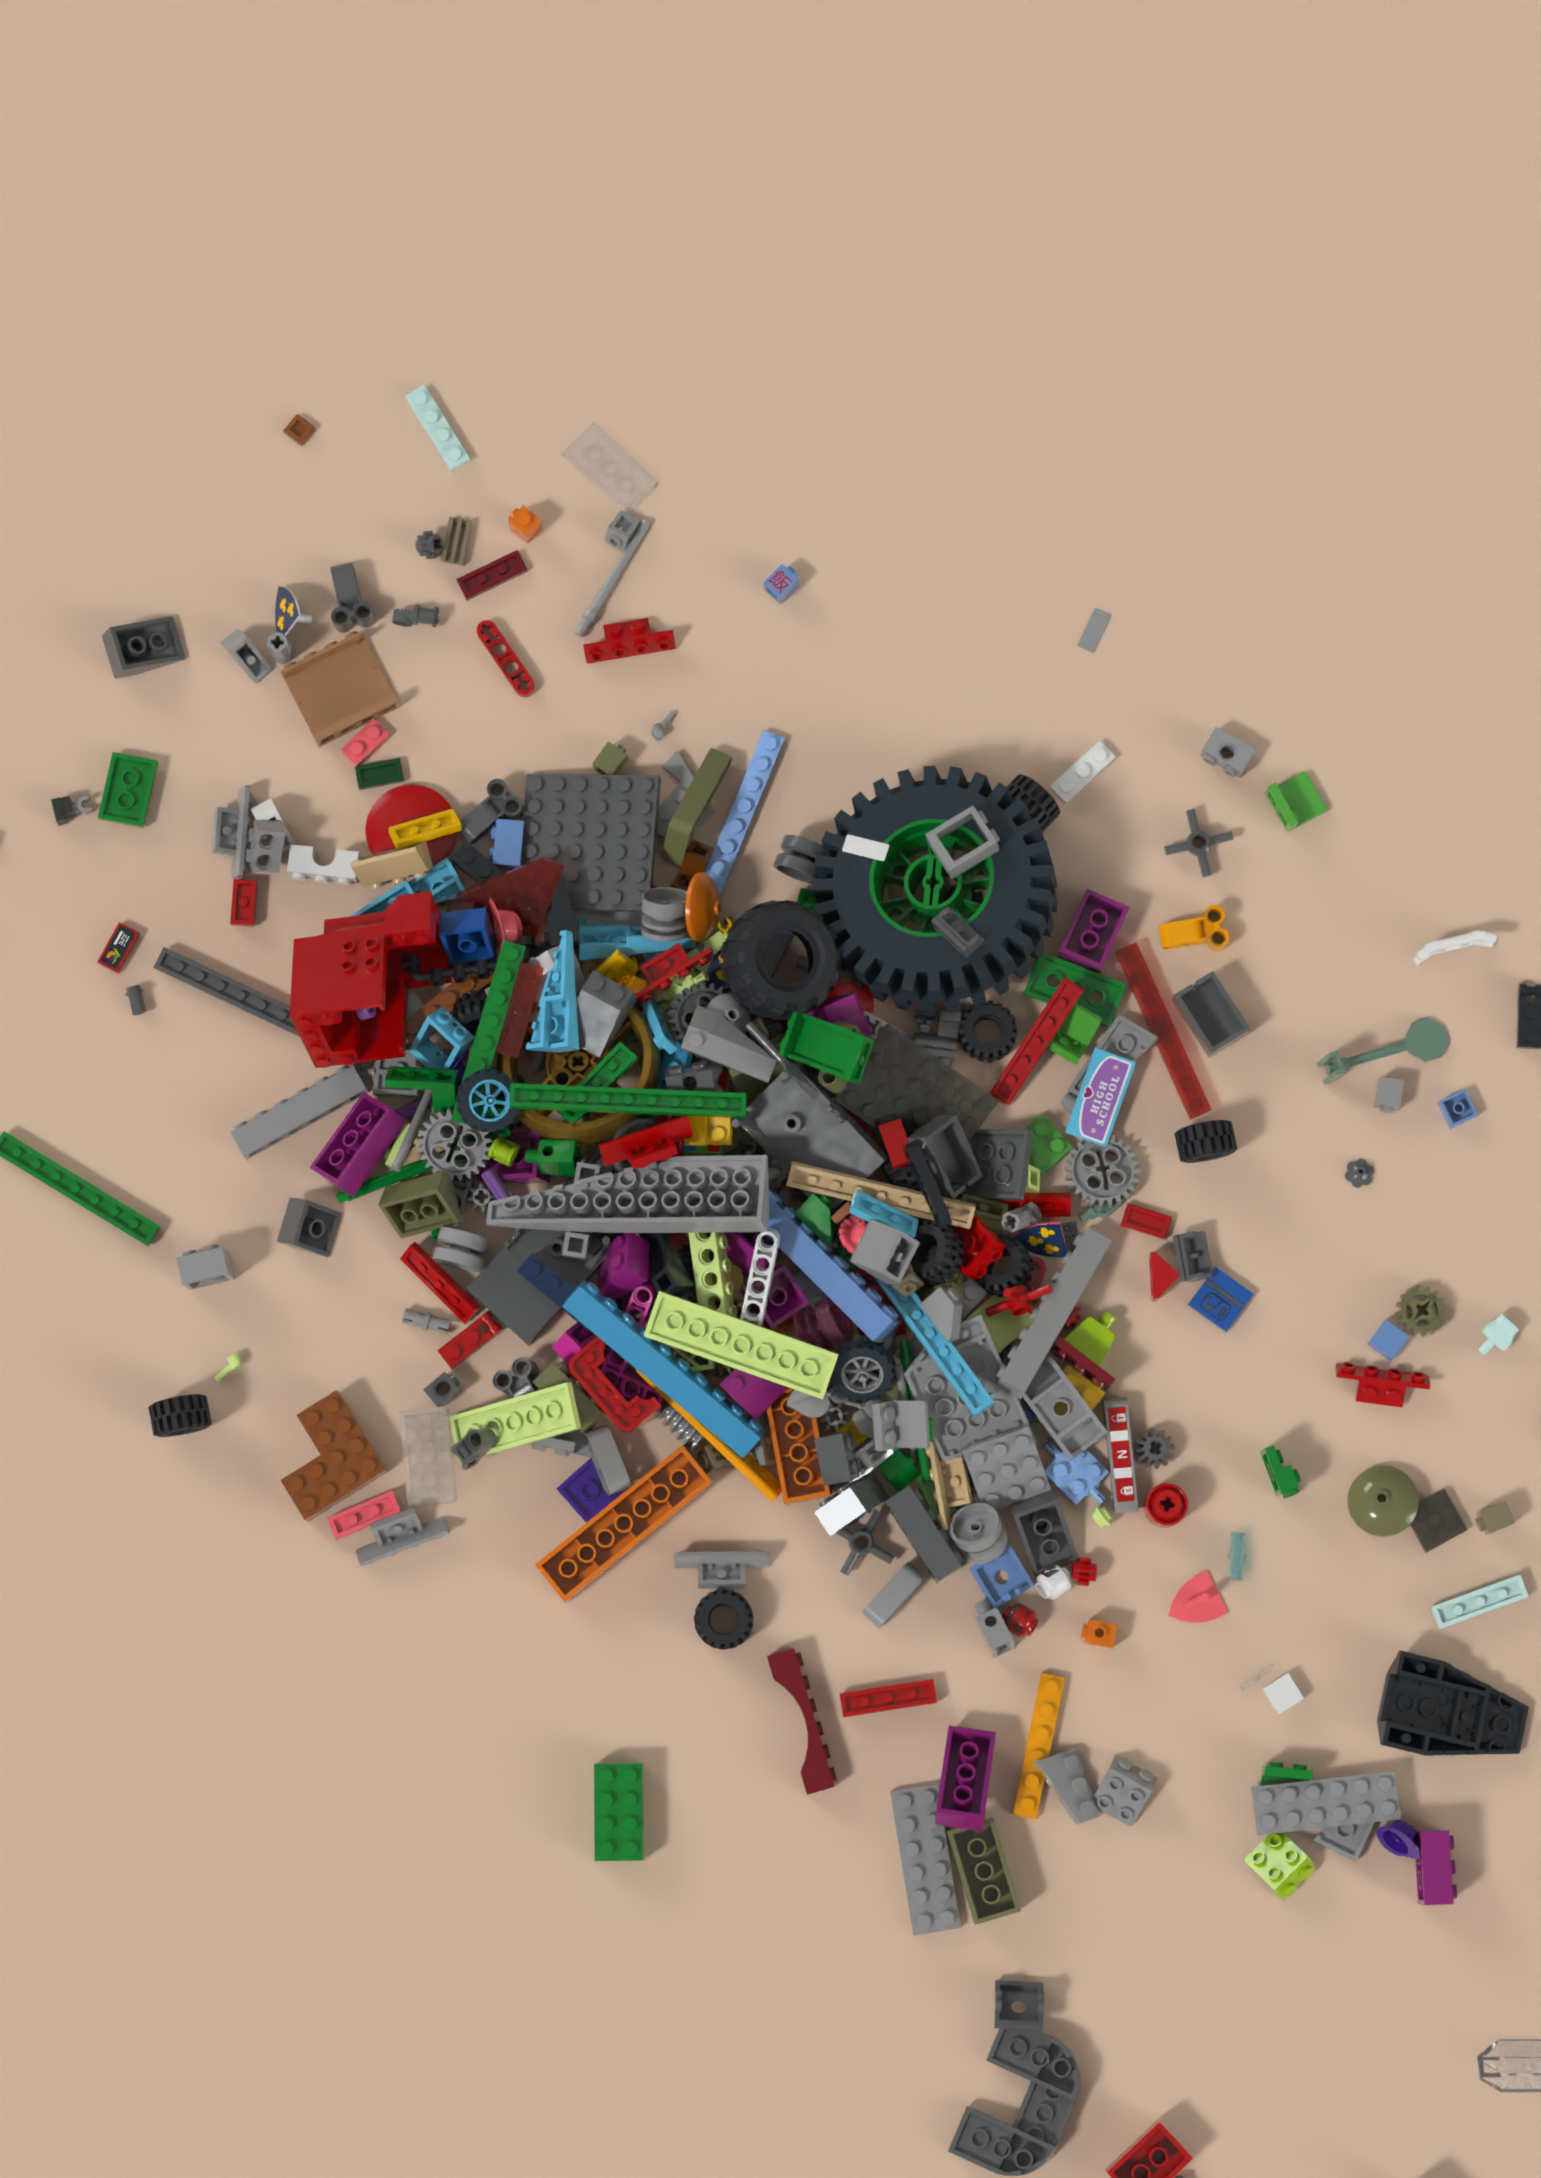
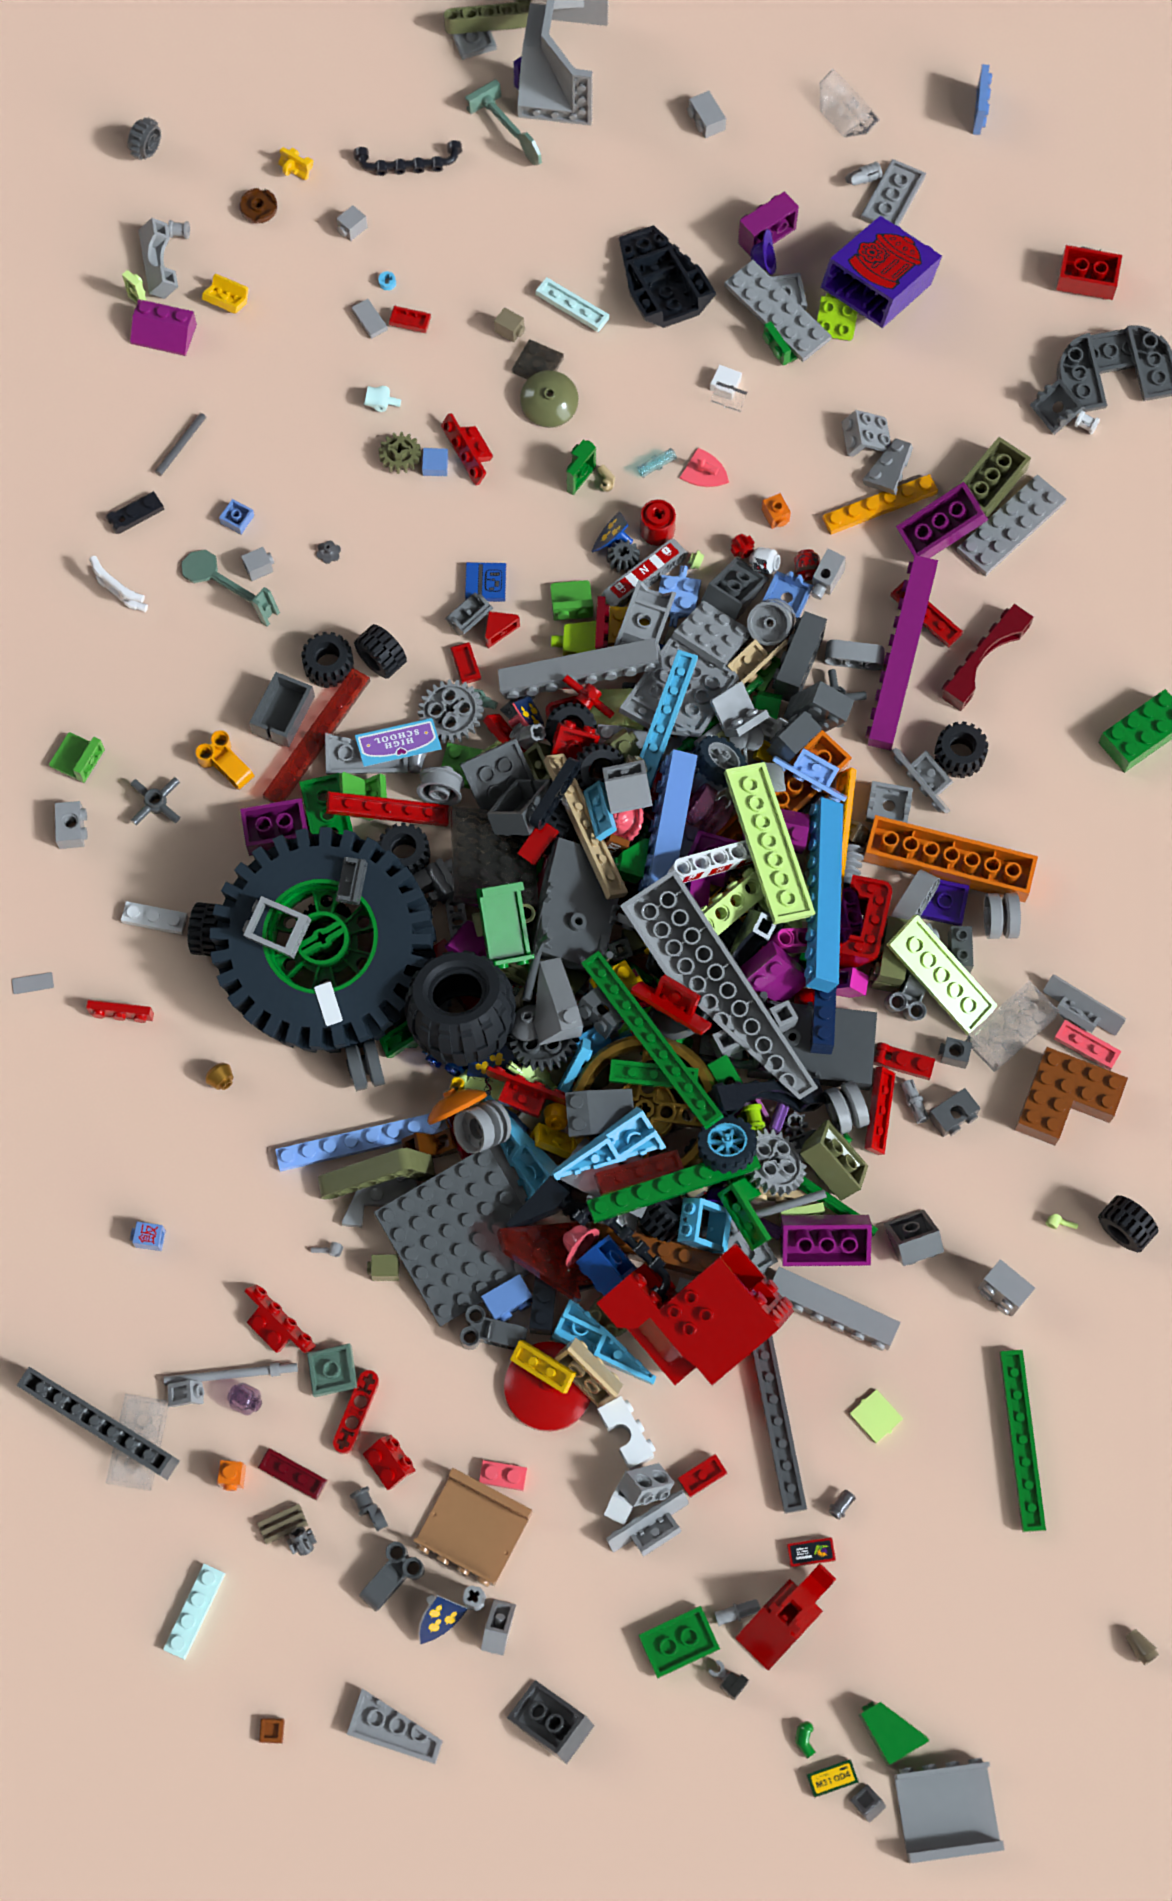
camera: 130 degrees left, 10 degrees down
(81, 888) = (785, 1617): none -> red piece
(116, 853) = (737, 1612): none -> light grey axle
(186, 1084) = (876, 1416): none -> yellowish green piece
(232, 519) = (388, 1728): none -> light grey wing
(379, 774) = (520, 1445): dark green tile -> none
(396, 1358) = (960, 1102): none -> dark grey brick
(443, 658) = (389, 1461): none -> red bracket
(472, 1449) = (984, 995): dark grey piece -> none
(525, 1136) = (732, 1097): none -> black arch
(532, 1467) = (961, 945): none -> dark grey brick
(533, 1527) = (1002, 915): none -> light grey wheel
(554, 660) = (332, 1370): none -> sand green tile
(581, 574) = (244, 1398): none -> clear purple head
(642, 440) = (98, 1423): none -> dark grey brick
(703, 1509) = (882, 792): none -> light grey piece
(789, 1450) = (815, 770): none -> light blue bracket
(860, 1639) = (902, 653): none -> magenta brick
(884, 732) = (220, 1076): none -> pearl gold cone
(944, 1311) = (637, 729): light grey slope -> none
(982, 2024) = (1087, 422): none -> white bush
(1008, 685) = (120, 1011): none -> red plate
(1028, 1106) = (440, 785): none -> light grey wheel
(1141, 1366) = (571, 600): none -> bright green bracket
(1186, 1454) = (612, 533): none -> shield
(1241, 1072) = (322, 646): none -> black tyre
(1248, 1493) = (608, 478): none -> tan arm
(1291, 1938) = (881, 271): none -> dark purple brick
(1387, 2036) = (894, 193): none -> light grey tile
(1431, 2021) = (865, 174): none -> light grey hinge

